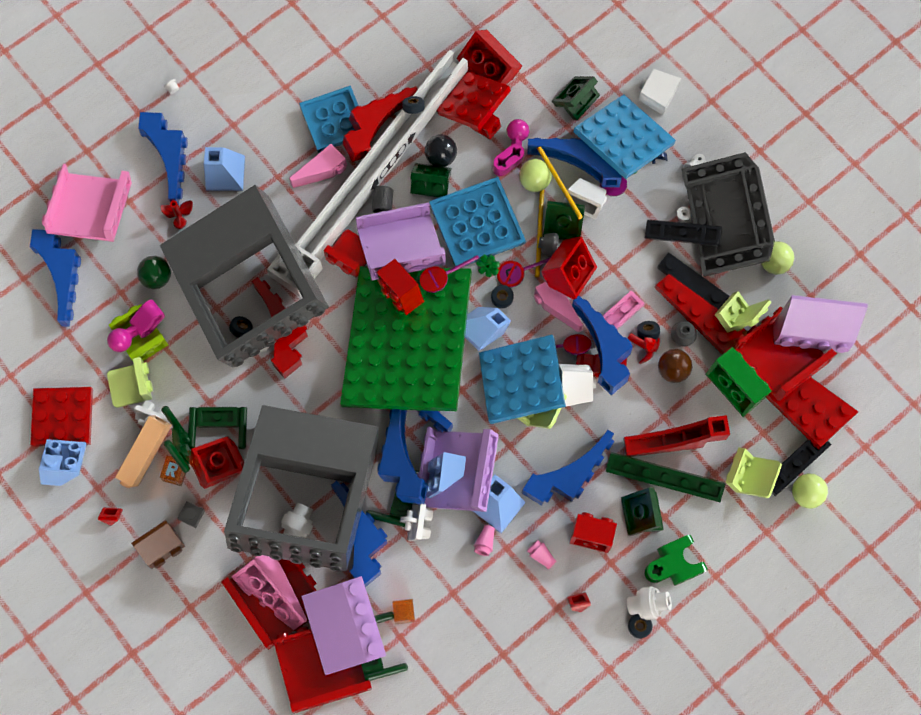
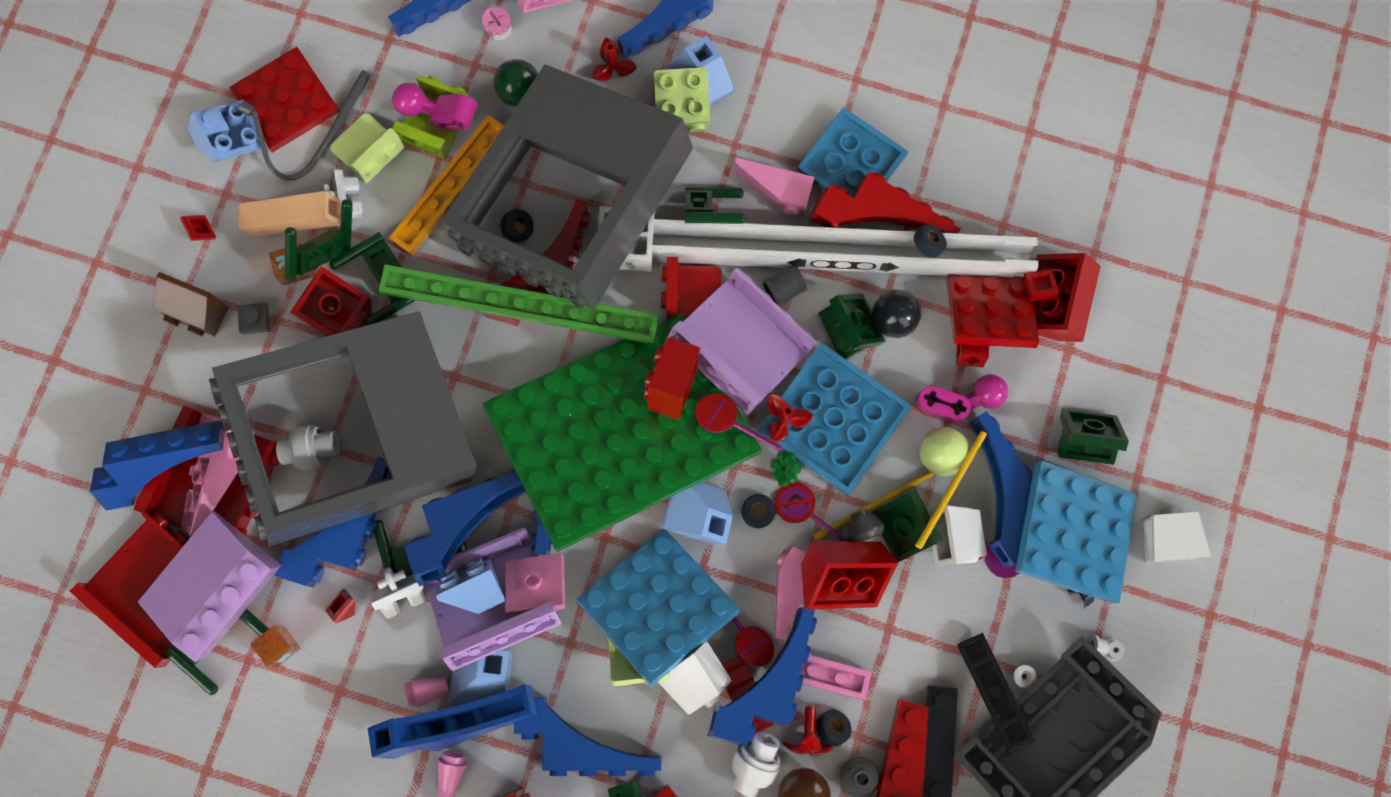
camera: 55 degrees right, 5 degrees up
(94, 382) = (347, 106): none -> dark grey piece
(104, 262) = (497, 22): none -> bright pink piece
(189, 350) = (445, 189): none -> light orange plate
(230, 181) = (684, 95): none -> yellowish green bracket
(242, 615) = (137, 460): none -> blue arch
(293, 350) = (517, 304): none -> bright green plate
(308, 215) = (700, 205): none -> dark green plate
(404, 561) = (341, 607): none -> red slope
(462, 241) = (778, 408): none -> red plant
(465, 438) = (534, 583): none -> bright pink plate
(477, 65) = (1041, 285): none -> red plate
(517, 529) = (451, 725): none -> blue arch
(643, 381) = (756, 764): none -> white piece

